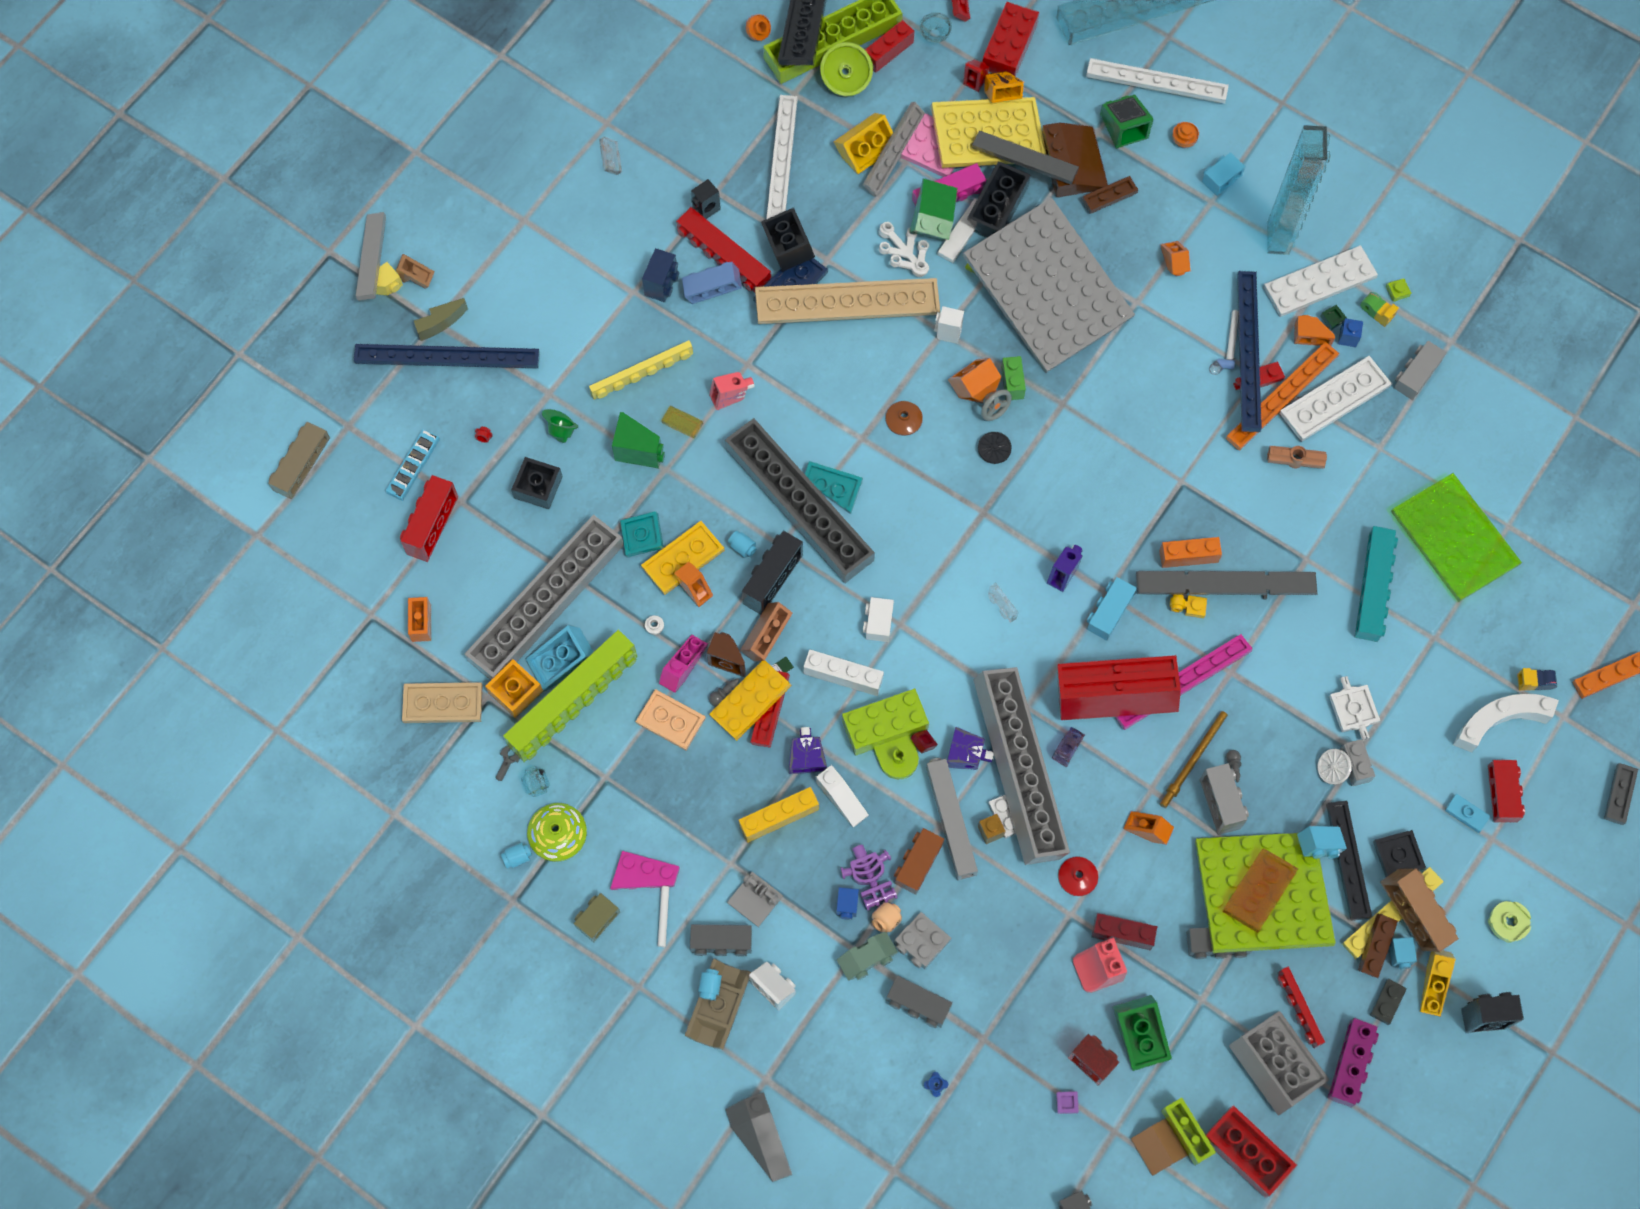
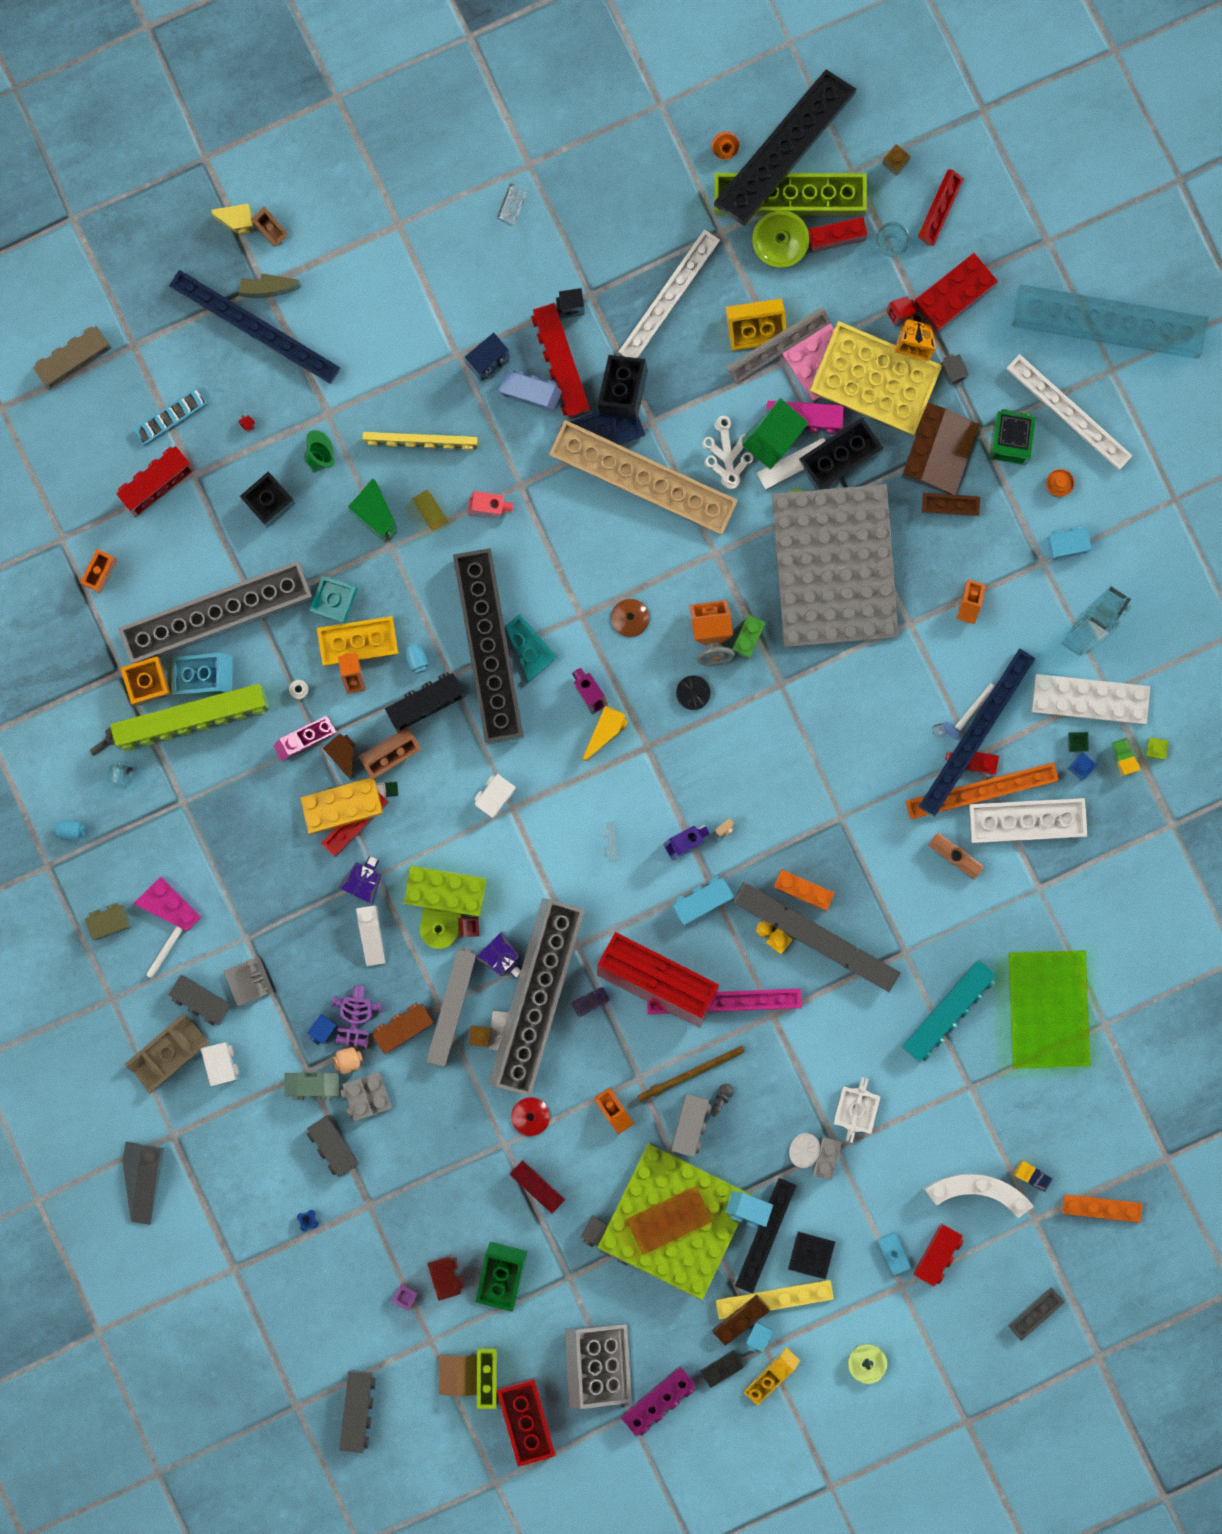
camera: 30 degrees right, 15 degrees up
(371, 256) = (237, 189): light grey tile -> none
(442, 702) = (79, 657): tan plate -> none
(560, 844) = (129, 827): lime dish -> none
(670, 719) = (265, 783): light nougat tile -> none
(710, 984) = (167, 1035): medium azure brick -> none
(718, 696) = (317, 785): dark grey bar -> none
(779, 814) = (308, 921): yellow brick -> none
(843, 672) = (435, 827): white brick -> none
(908, 490) = (592, 696): none -> magenta torso
(941, 511) = (607, 728): none -> yellow slope
(949, 324) = (720, 554): white brick -> none
(1025, 157) = (889, 427): dark grey tile -> none
(1046, 95) = (954, 369): none -> dark grey brick
(1092, 539) = (725, 829): none -> tan plate
(1100, 966) = (498, 1202): coral hips -> none
(1303, 1012) = (644, 1324): red plate -> none
(1311, 331) = (1048, 745): orange slope -> none
(1419, 369) = (1122, 837): light grey brick -> none
(1419, 910) = (792, 1313): medium nougat brick -> none
(1492, 1013) = (794, 1431): black brick -> none

